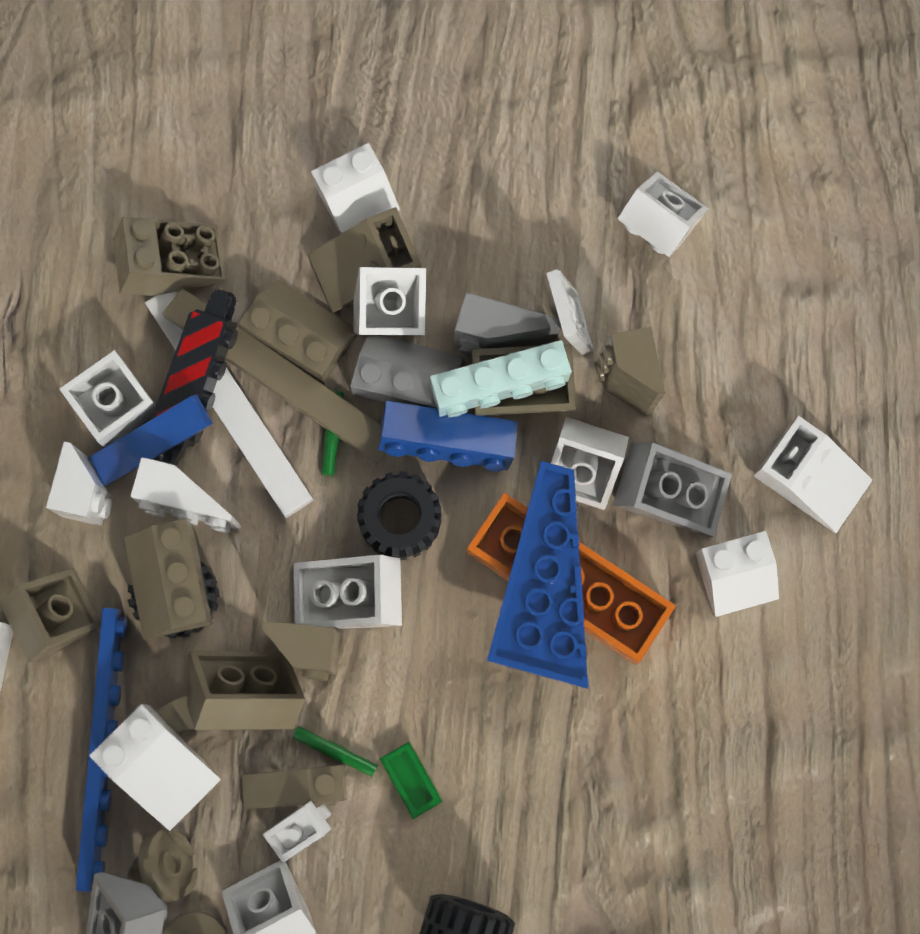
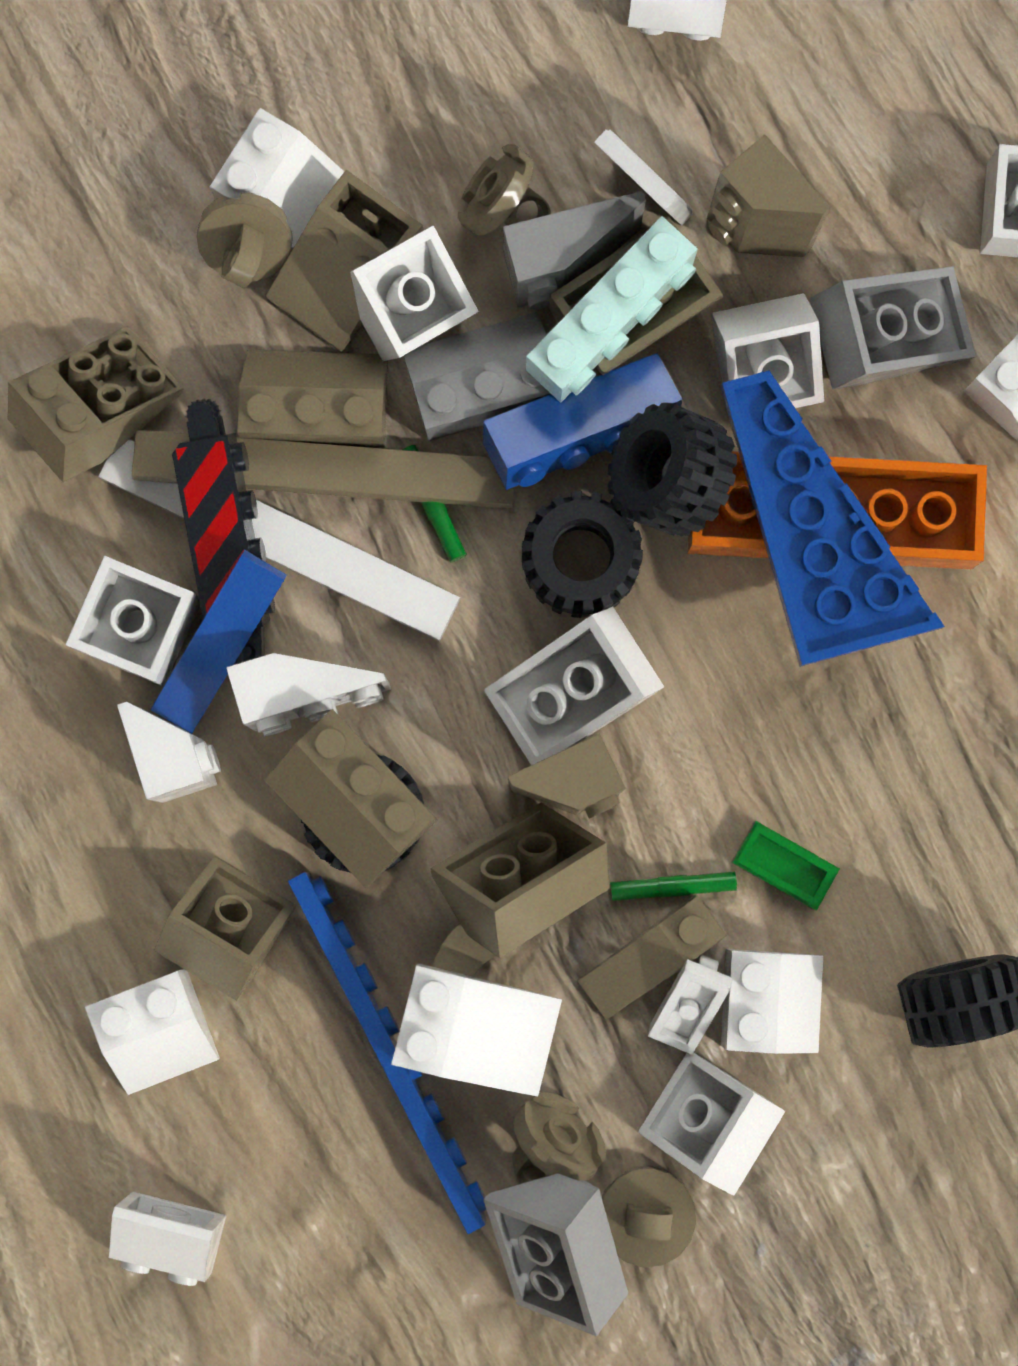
camera: 25 degrees left, 5 degrees up
(313, 213) = (244, 238): none -> dark tan tile
(351, 860) = (772, 1002): none -> white slope
(480, 495) = (671, 469): none -> black tyre
(481, 272) = (498, 192): none -> dark tan tile

